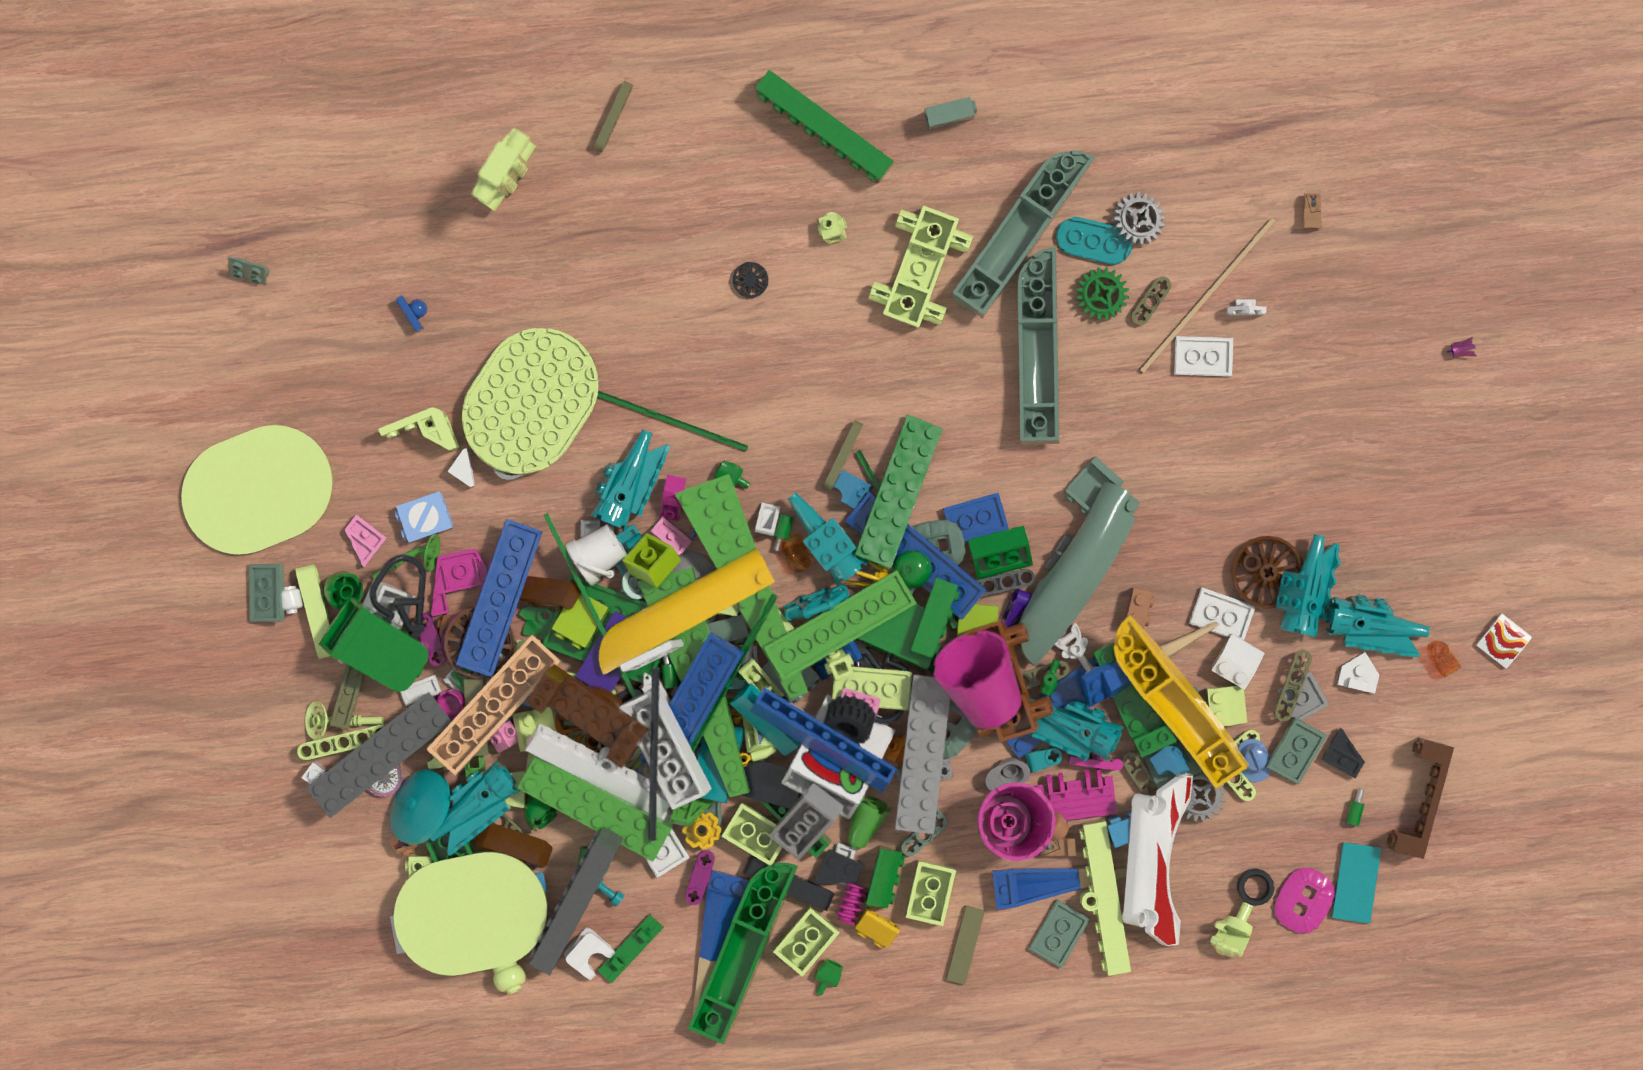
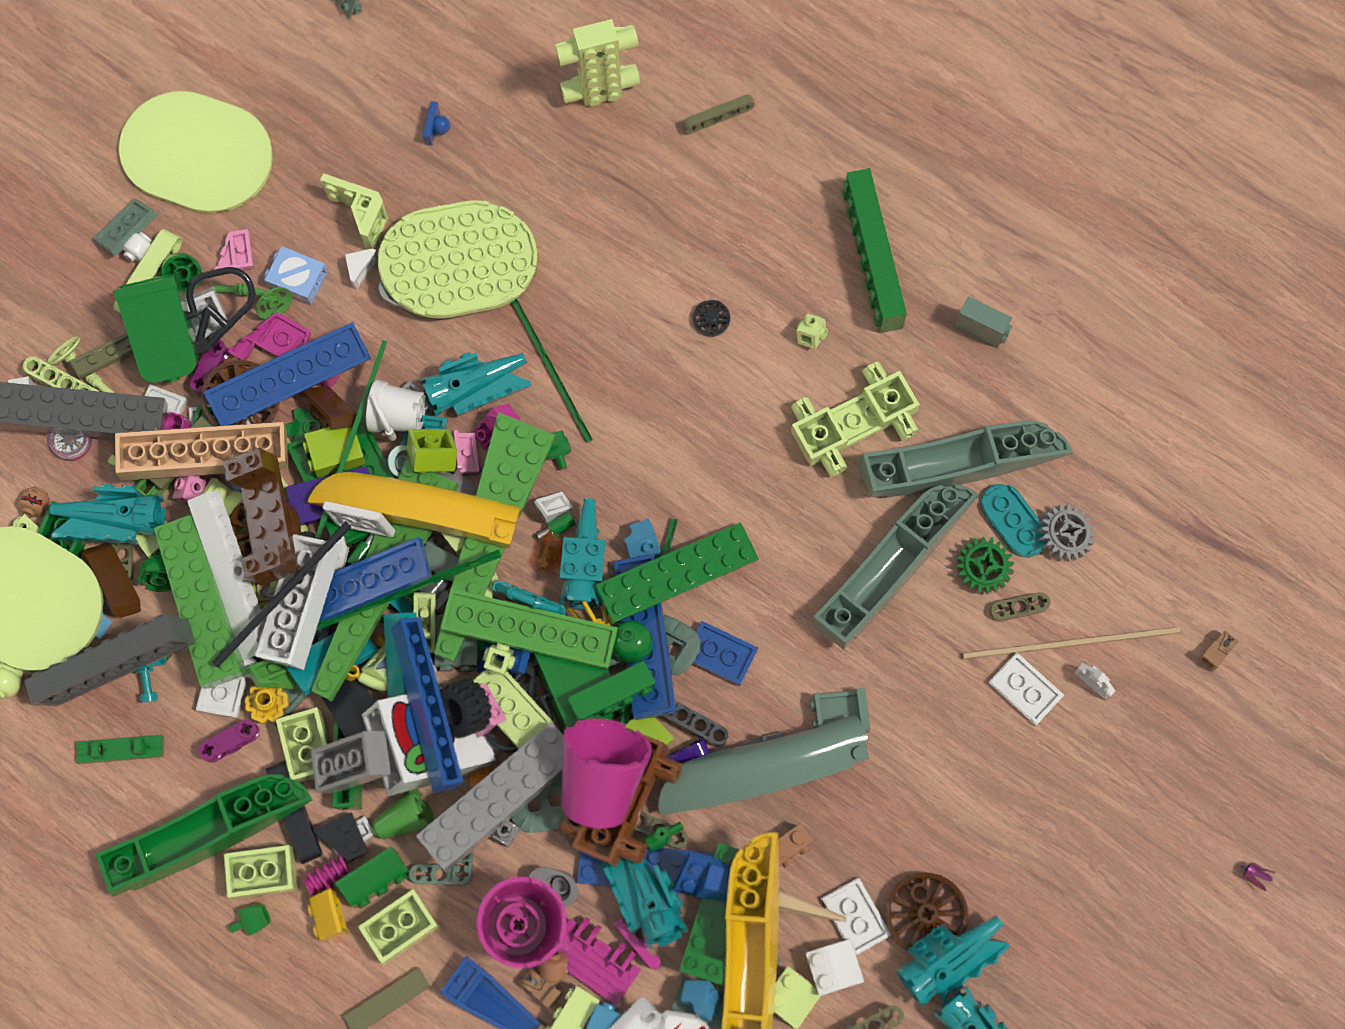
camera: 45 degrees right, 15 degrees down
(420, 807) = (69, 480): teal dish -> none
(584, 946) = (82, 711): white piece -> none
(721, 905) = (225, 774): blue plate -> none
(842, 456) = (661, 508): olive beam -> none
(1000, 552) = (716, 696): green slope -> none
(1039, 759) = (593, 898): teal piece -> none
(1077, 649) = (707, 834): white piece -> none
(1128, 767) = (661, 975): olive beam -> none

